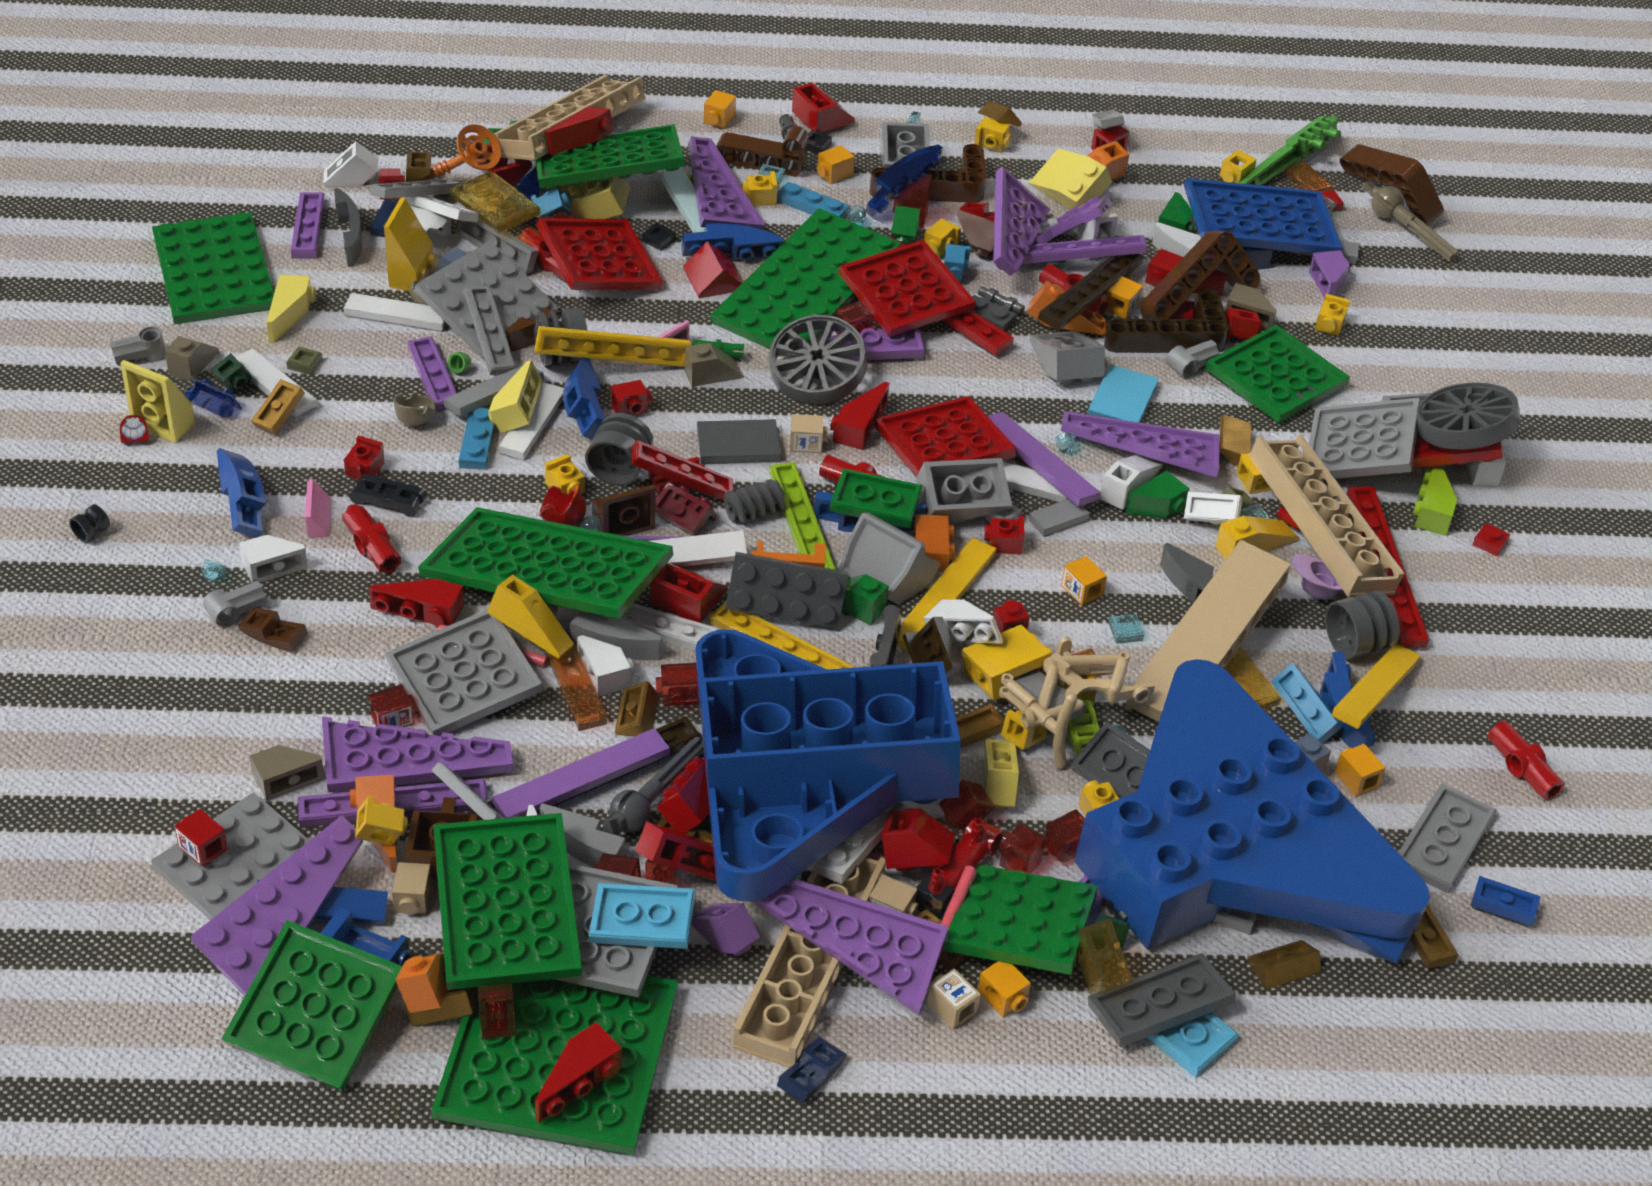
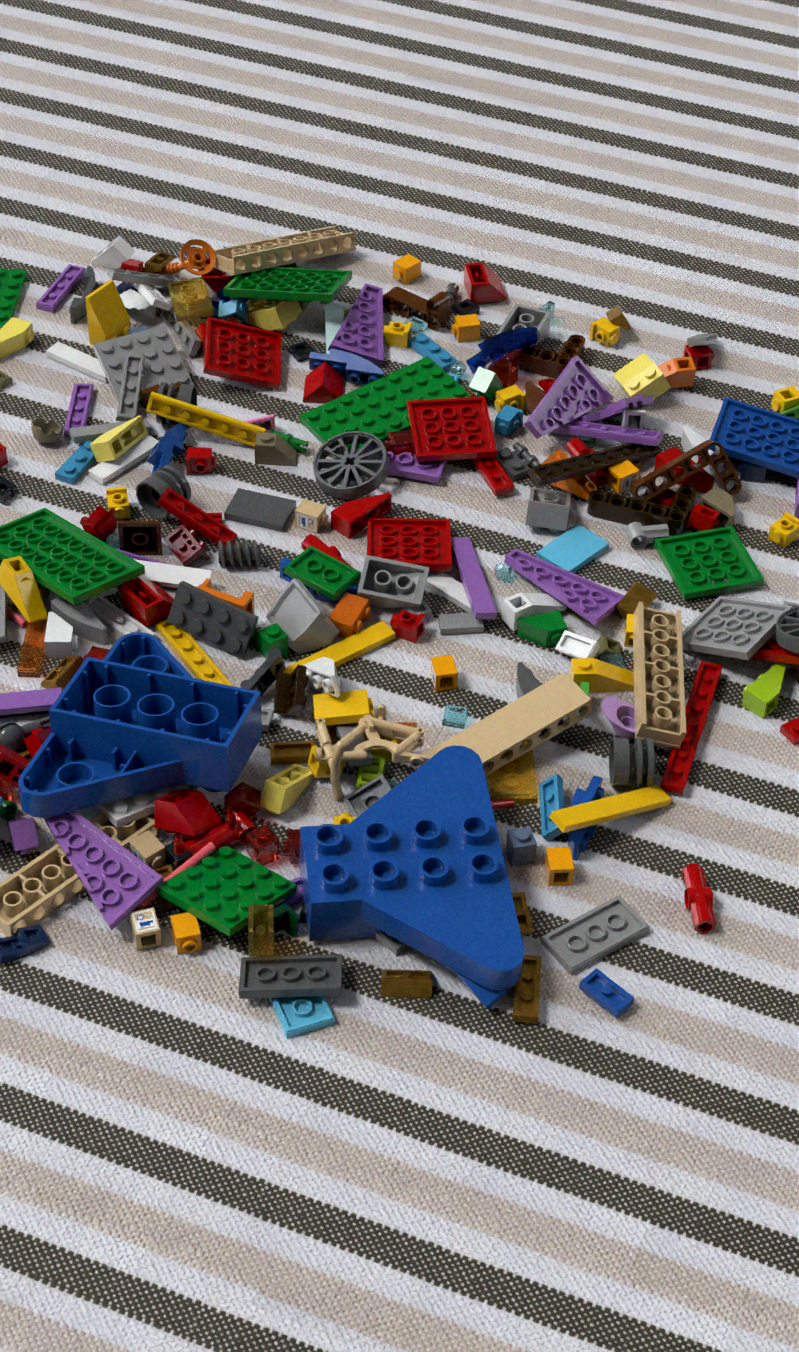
camera: 25 degrees right, 0 degrees up
(459, 362) = (100, 406): bright green hinge -> none
(580, 129) = (278, 260): red slope -> none
(799, 511) = (269, 574): lime tile -> none
(1011, 615) = (366, 680): red brick -> none
(1178, 214) = (705, 423): green slope -> none

